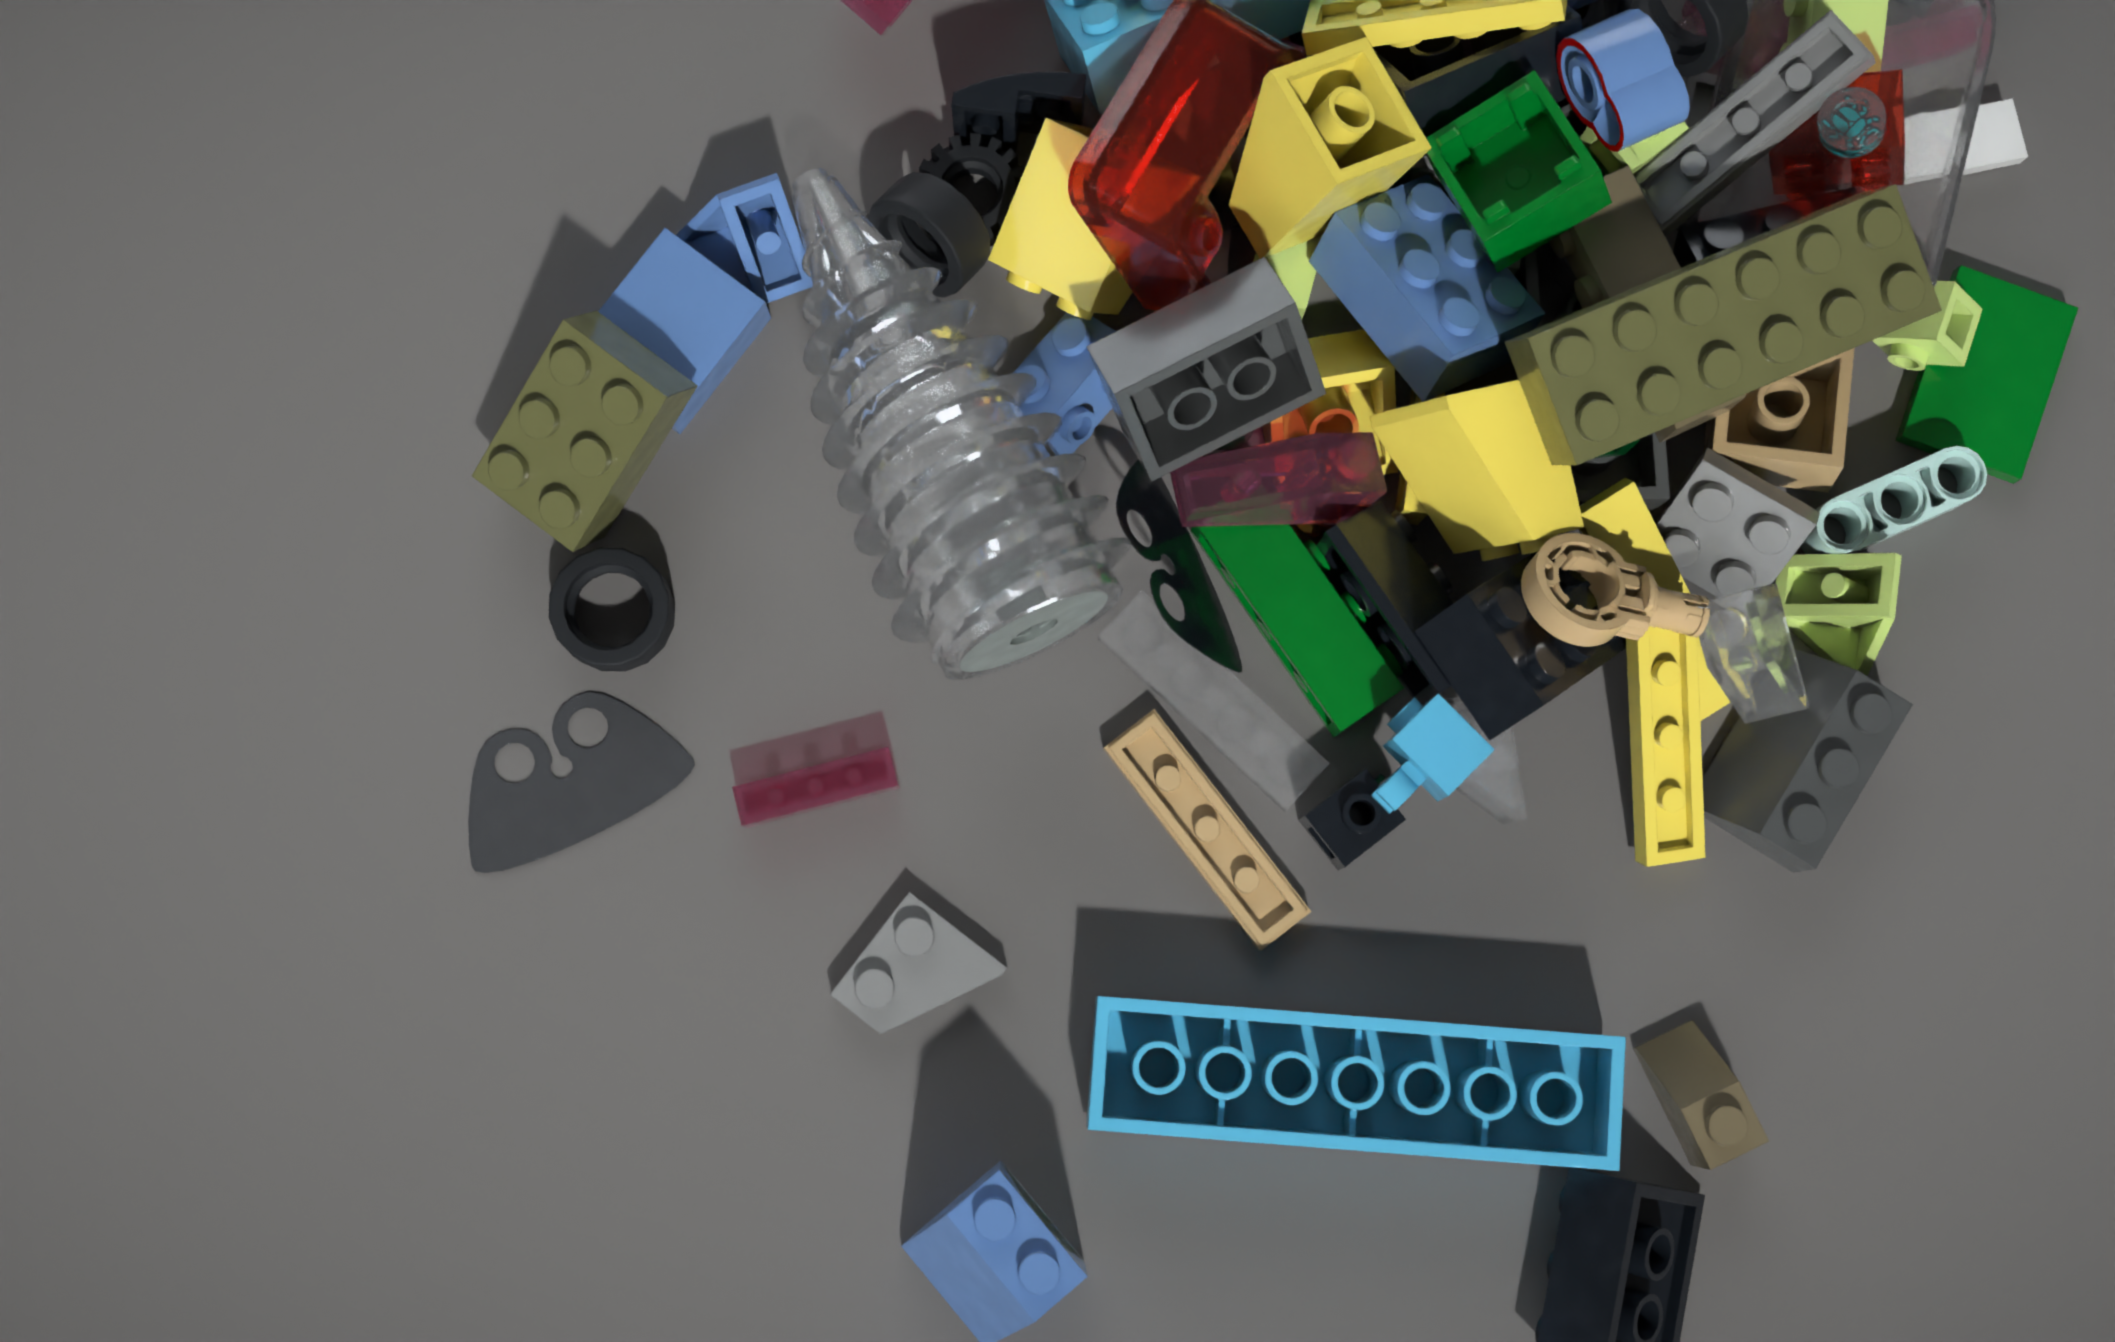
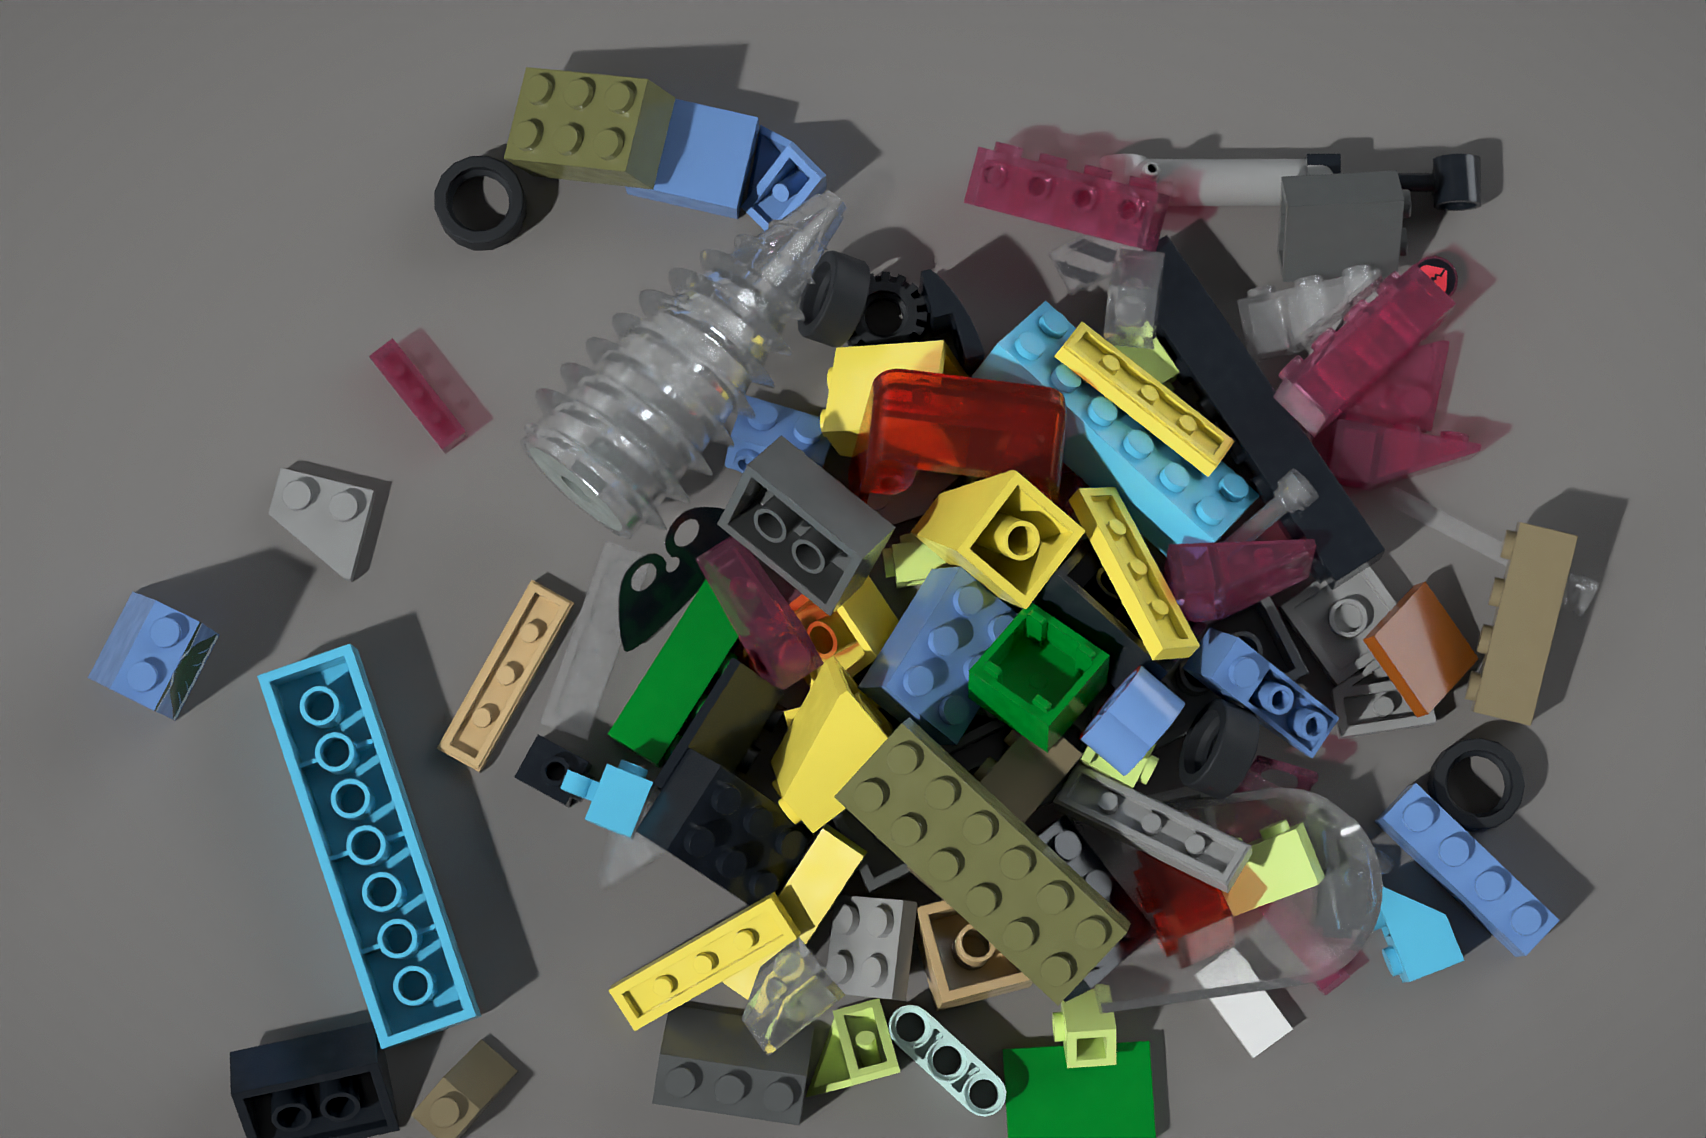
camera: 70 degrees right, 0 degrees up
(546, 813) = (325, 226): clear piece -> none
(1623, 591) = (776, 881): tan pin -> none
(1852, 122) = (1178, 895): clear tile -> none

